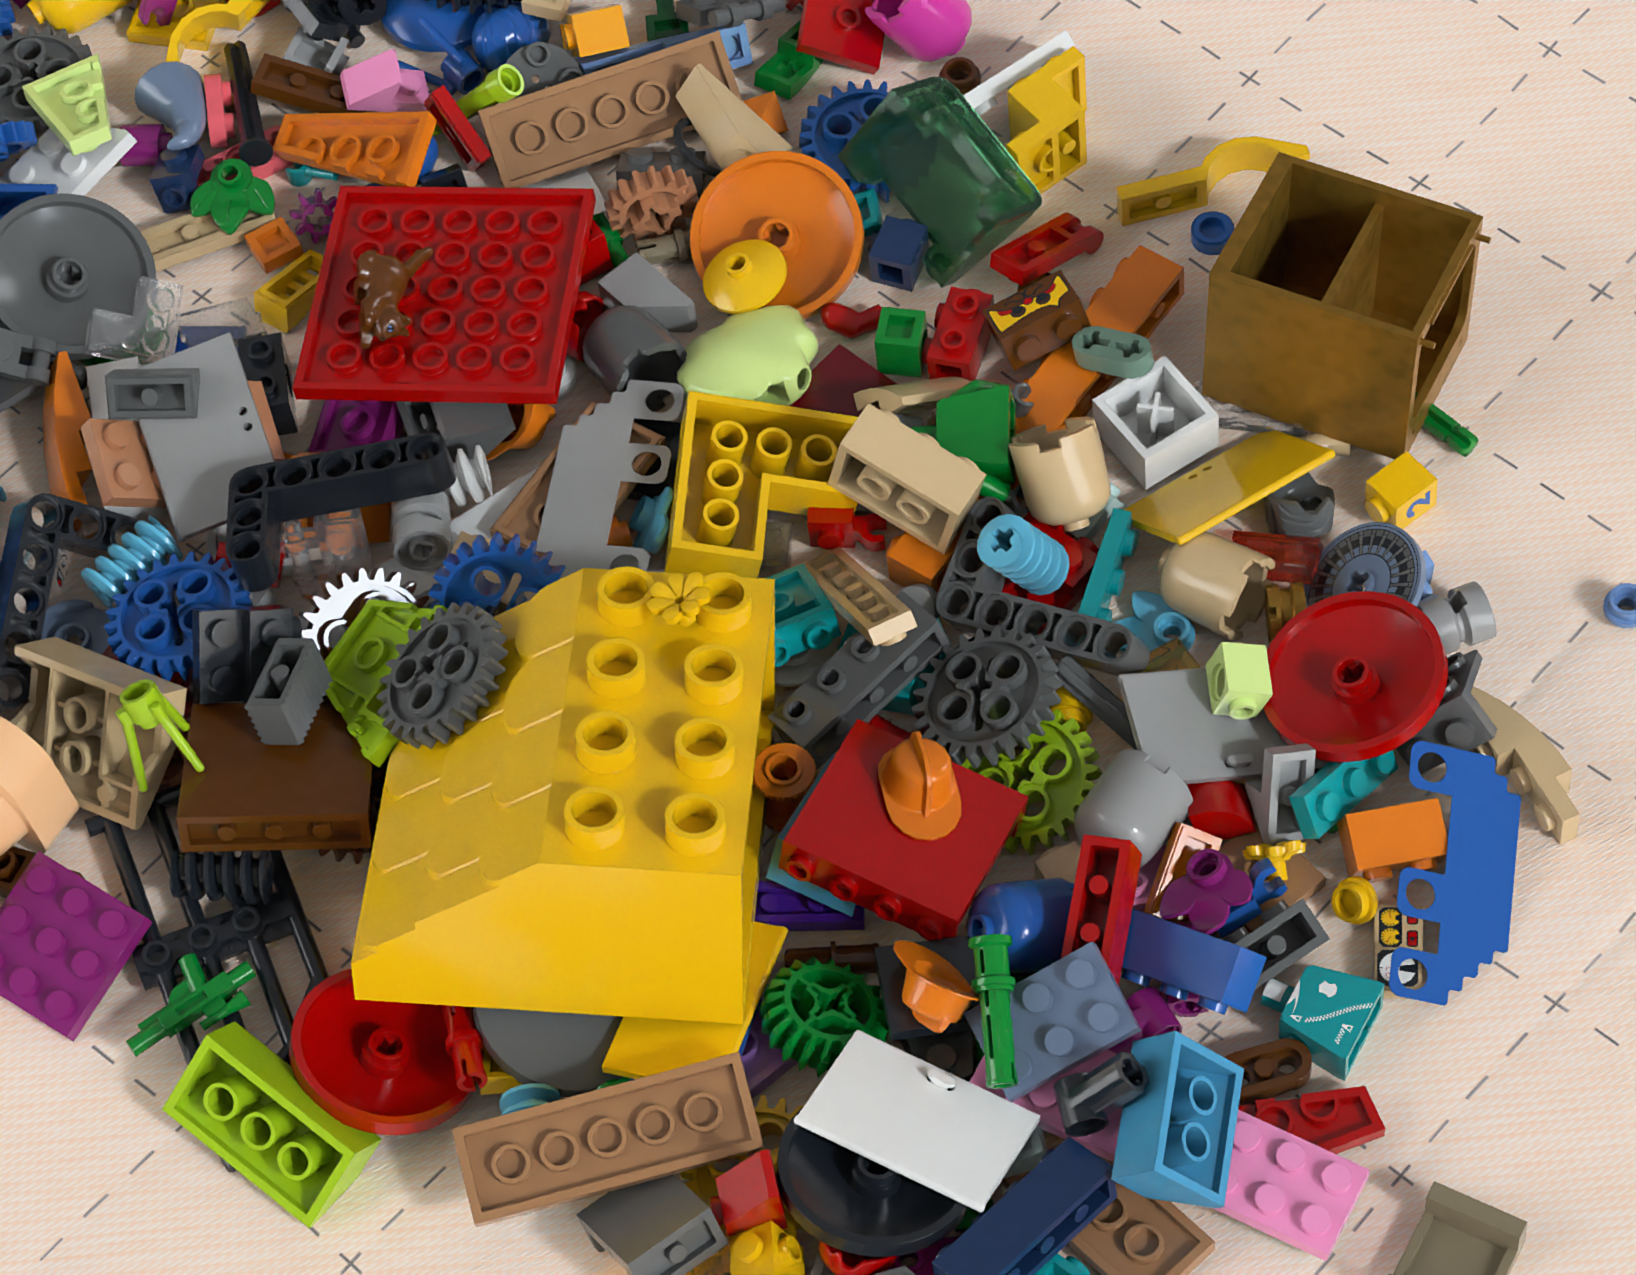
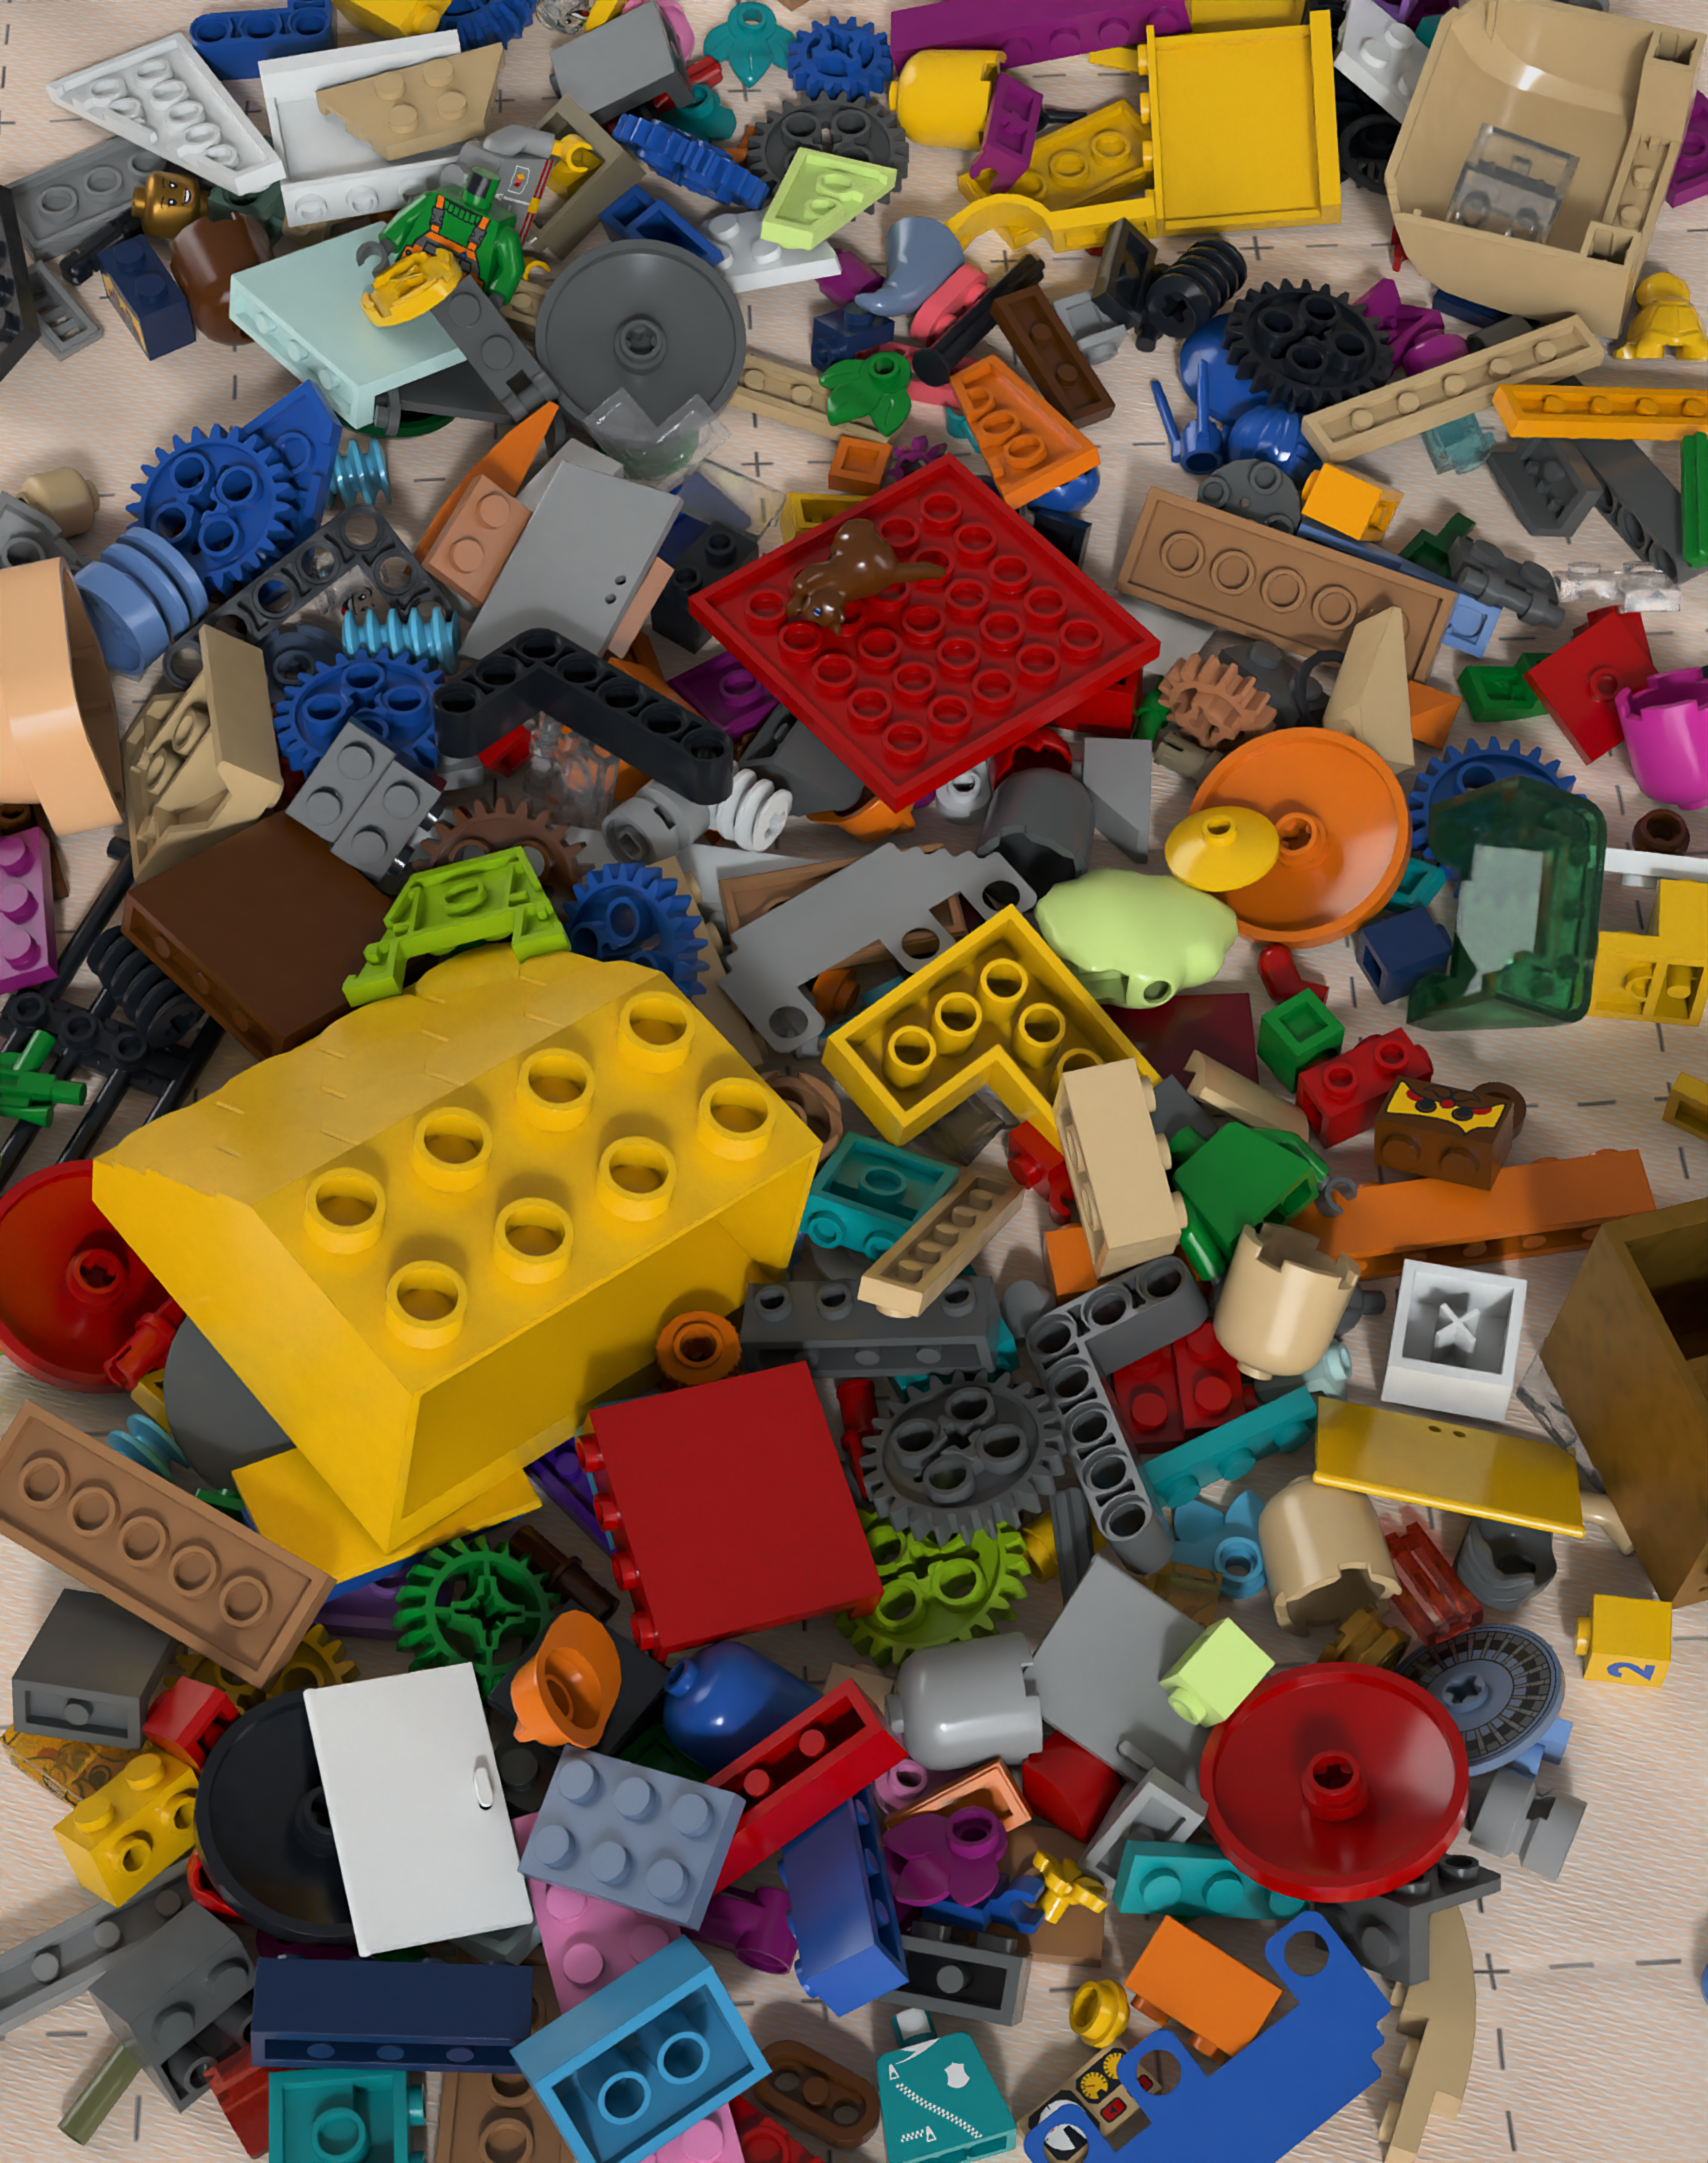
camera: 40 degrees right, 0 degrees up
(147, 707) = (204, 763): lime plant -> none
(152, 393) = (563, 497): dark grey slope -> none
(288, 692) = (349, 865): dark grey brick -> none
(383, 86) = (1103, 397): bright pink slope -> none
(442, 675) = (460, 964): dark grey gear -> none
(457, 129) = (1126, 490): red tile -> none
(499, 87) = (1191, 478): lime plant -> none
(680, 599) = (687, 1076): yellow plant -> none
(920, 788) = (778, 1486): orange piece -> none
(994, 987) = (599, 1745): green pin -> none
(1023, 554) = (1152, 1348): medium azure piece -> none
(1045, 248) = (1544, 1072): red plate -> none
(1091, 1096) = (591, 1952): black piece -> none
(1113, 352) = (1489, 1226): sand green beam -> none

